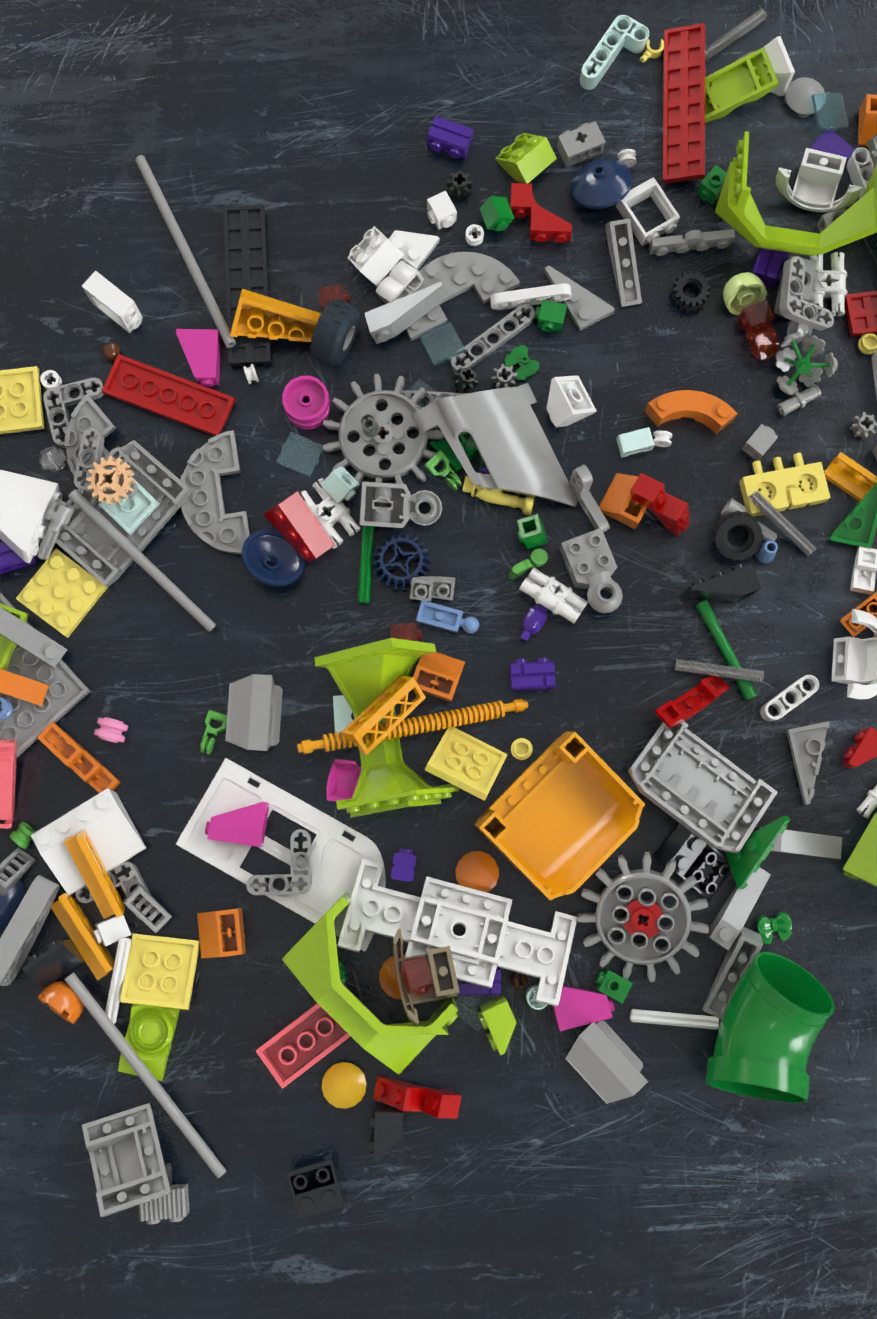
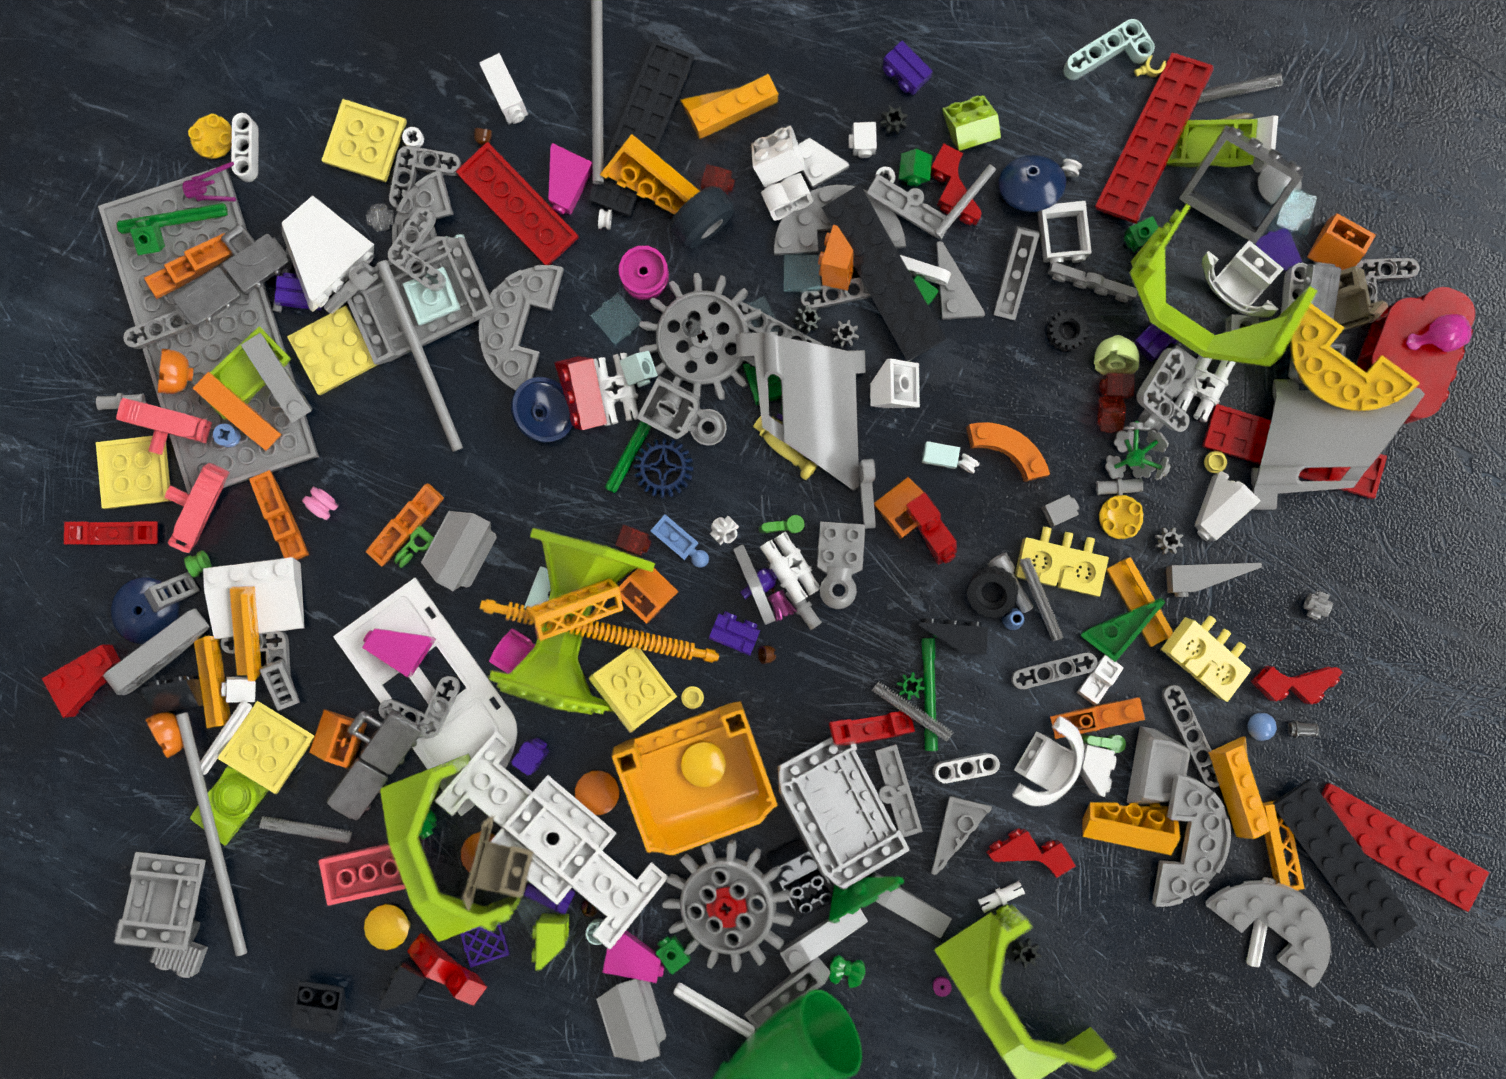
camera: 25 degrees right, 5 degrees up
(103, 475) = (412, 265): light nougat gear -> none
(193, 719) = (406, 522): none -> orange slope
(230, 1031) = (305, 829): none -> light grey axle
(267, 929) = (377, 760): none -> flat silver piece
(309, 239) = (720, 109): none -> light orange wedge
(398, 315) = (769, 227): light grey slope -> none
(416, 975) = (491, 864): clear red brick -> none
(432, 587) = (677, 505): light grey slope -> none
(453, 479) = (741, 385): bright green piece -> none
(461, 1058) = (467, 948): none -> dark purple window
(468, 316) = (836, 260): none -> orange slope
(480, 590) = (724, 530): none -> white gear
(507, 247) = (906, 204): none -> light grey hinge
(514, 310) = (885, 274): none -> black plate
(528, 366) = (874, 333): green piece -> none
(531, 621) = (754, 584): none -> light grey beam
(532, 531) = (799, 497): green brick -> none
(552, 221) = (964, 201): none -> light grey bar
(555, 628) = (781, 604): none -> flat silver piece
(560, 802) = (703, 764): none -> yellow dish
(564, 678) = (766, 654): none -> reddish brown hinge
(580, 144) = (1022, 138): light grey brick -> none
(583, 627) = (806, 612): none -> light grey pin
(712, 649) = (917, 687): none -> green gear
(740, 746) = (897, 791): none -> light grey hinge
(775, 66) = (1221, 214): none -> flat silver window
(813, 424) = (1121, 517): none -> yellow dish
(822, 580) = (1054, 673): none -> light grey beam
(858, 901) = (941, 991): none -> magenta piece

